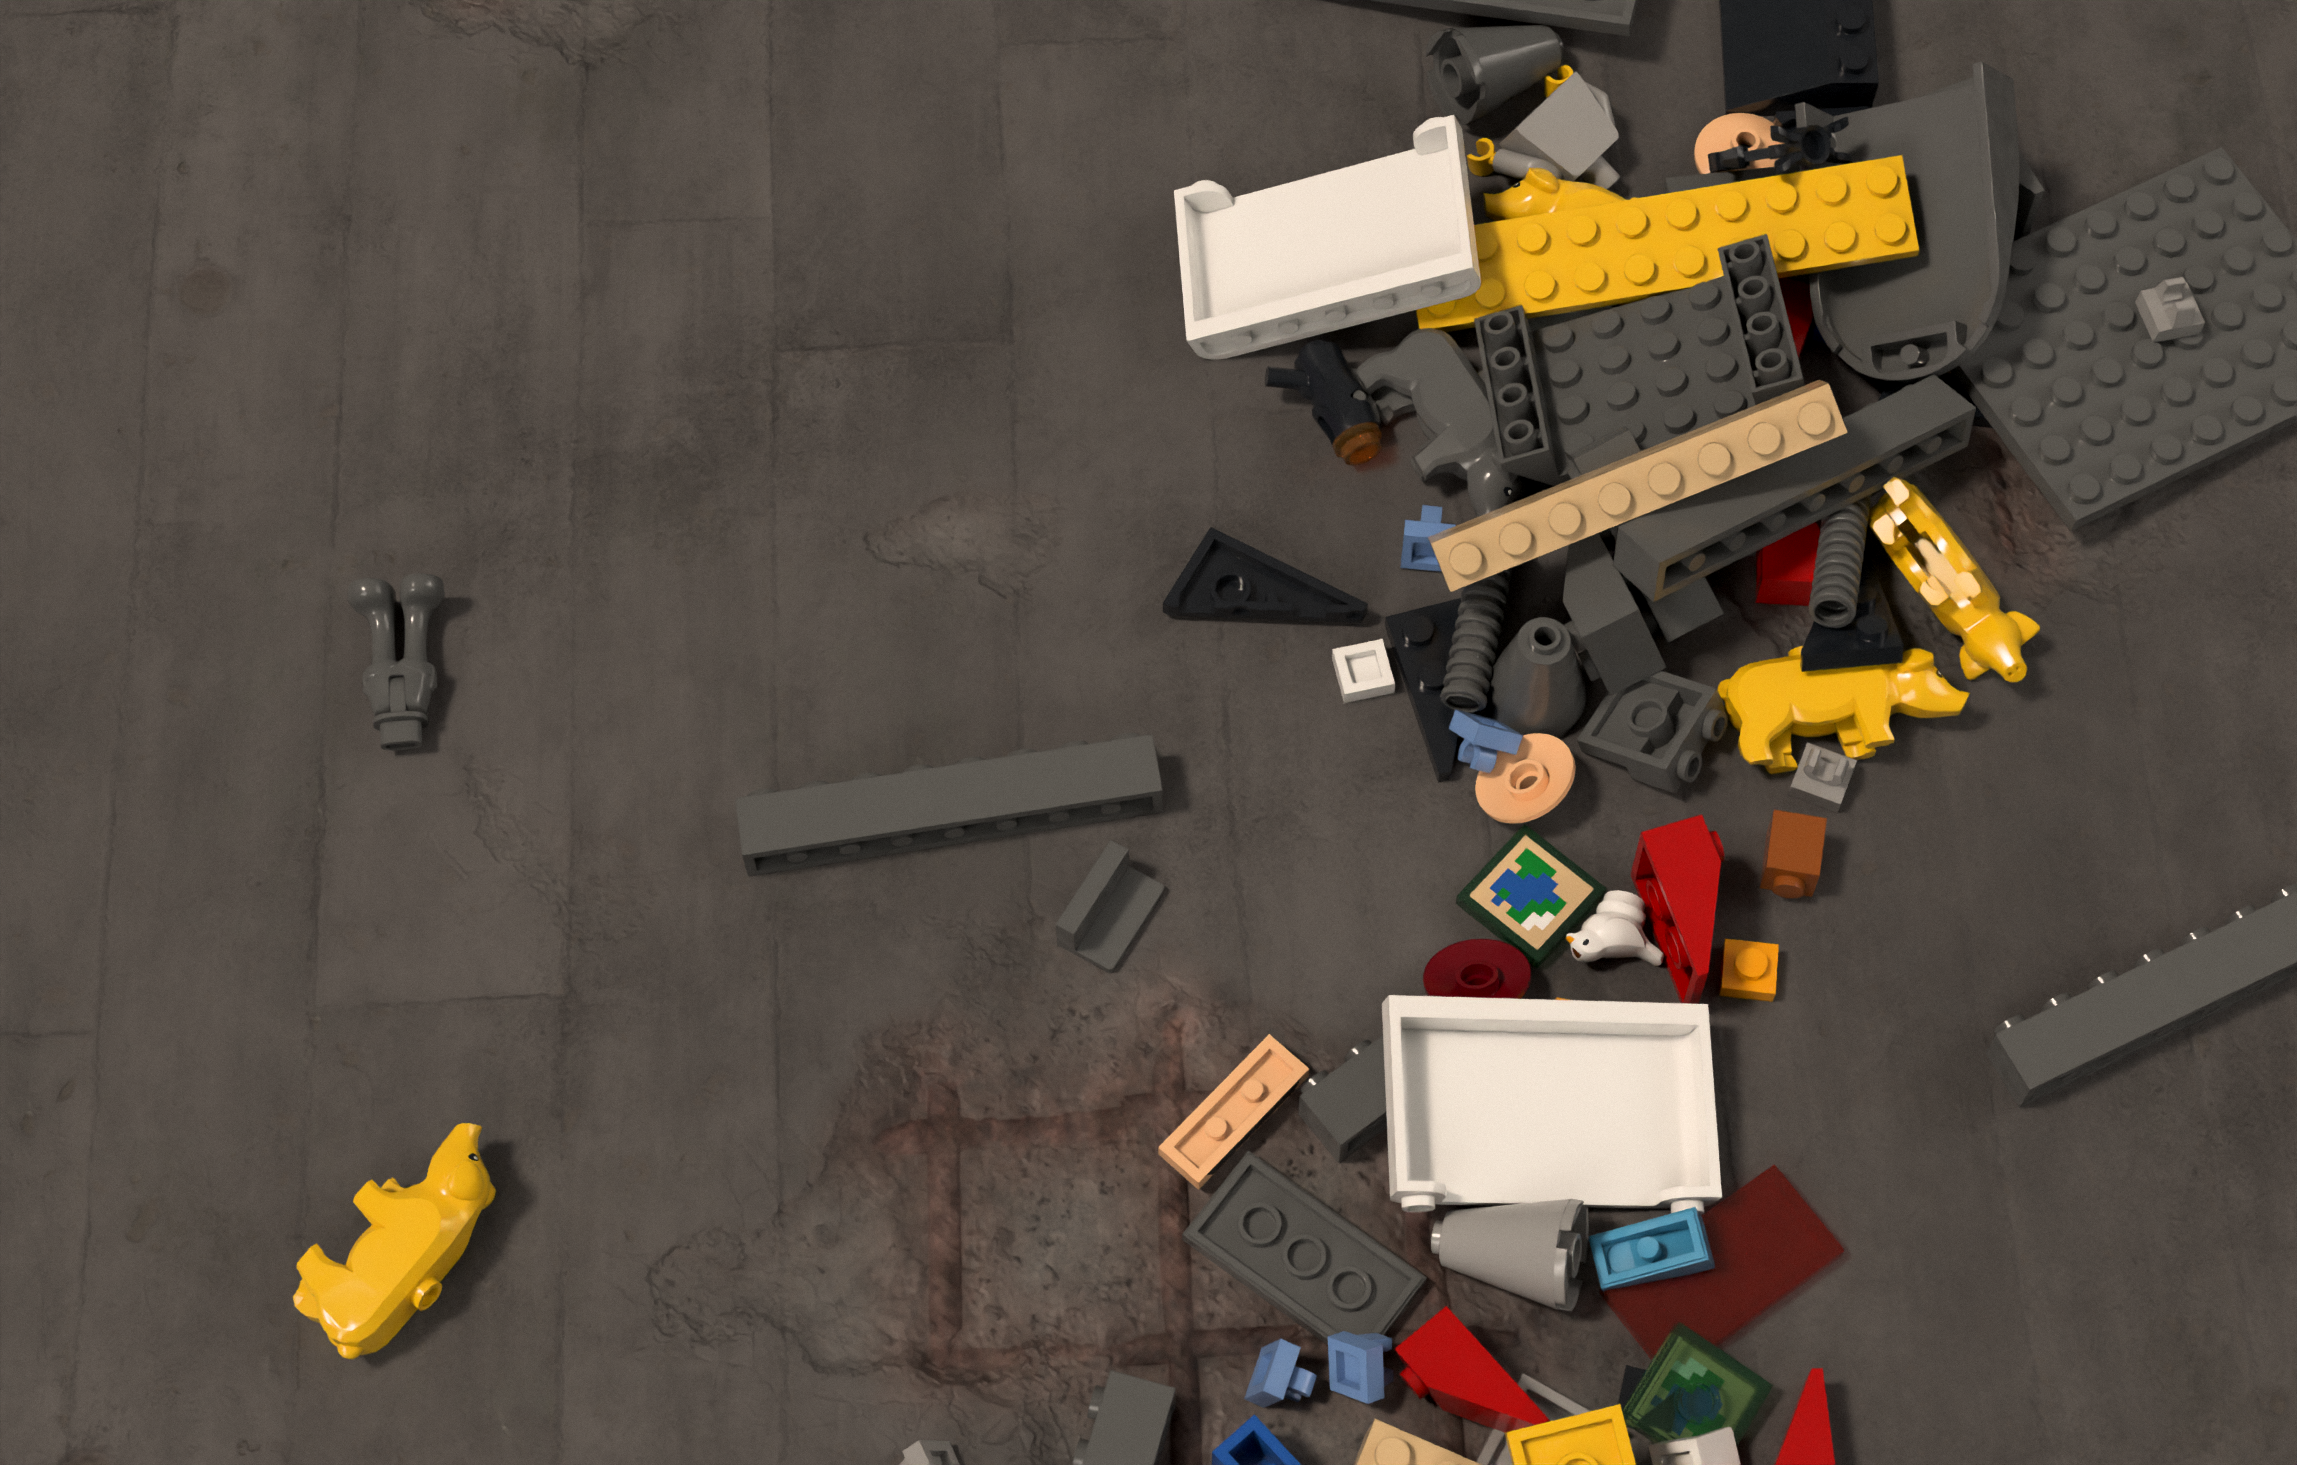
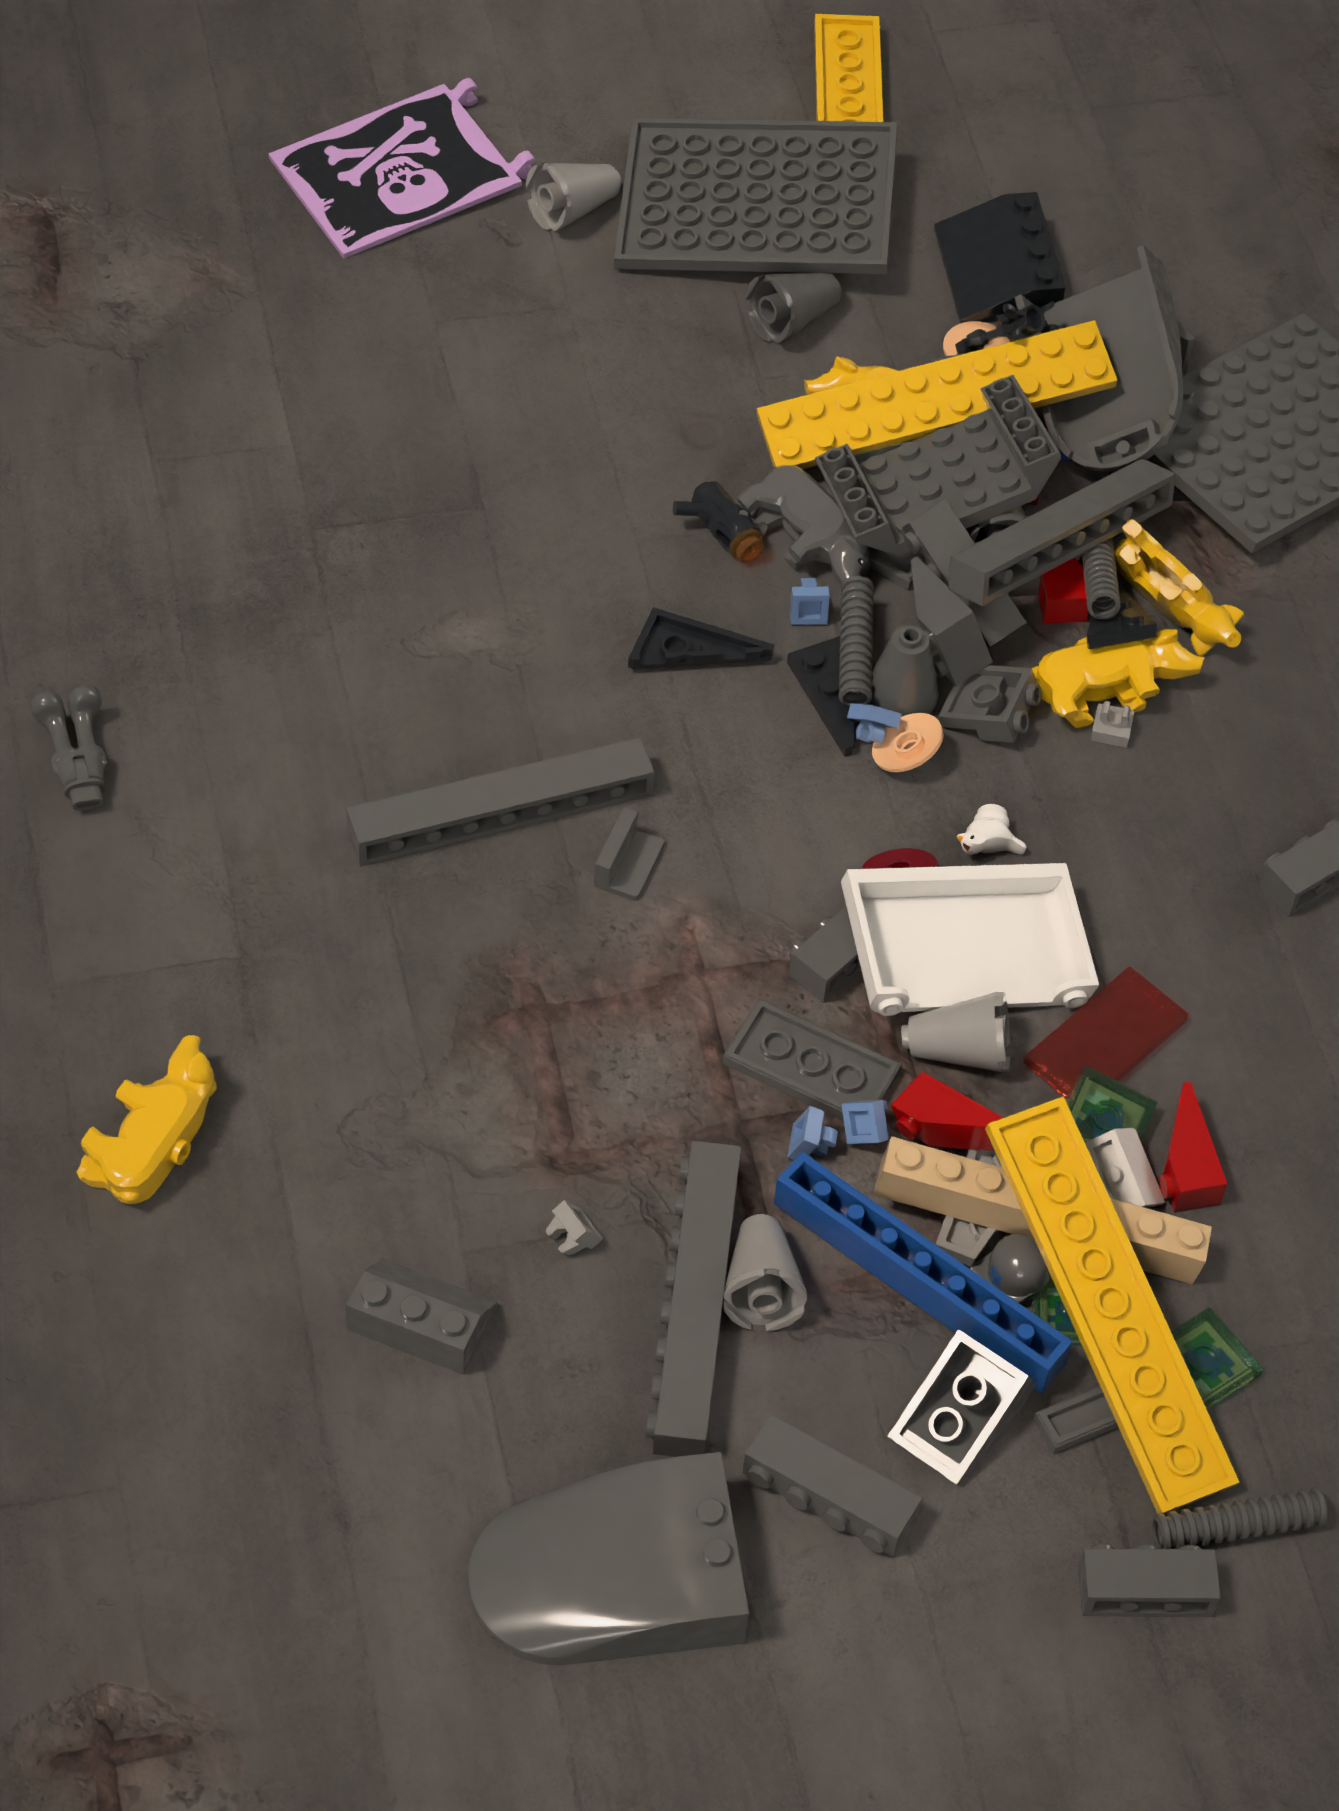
camera: 15 degrees left, 10 degrees down
(1233, 1111) = (743, 974): light nougat plate -> none
(1328, 247) = (704, 421): white windscreen -> none
(1363, 671) = (778, 690): white tile -> none
(1530, 895) = (925, 817): tile -> none
(1560, 135) = (852, 334): light grey torso -> none
(1638, 484) = (956, 532): tan brick -> none
(1652, 1250) = (1057, 1025): dark azure slope -> none
(1679, 881) = (1031, 794): red slope -> none
(1749, 970) = (1086, 849): light orange plate -> none
(1793, 854) = (1103, 771): dark orange brick -> none
(2170, 310) = (1292, 409): light grey tile -> none

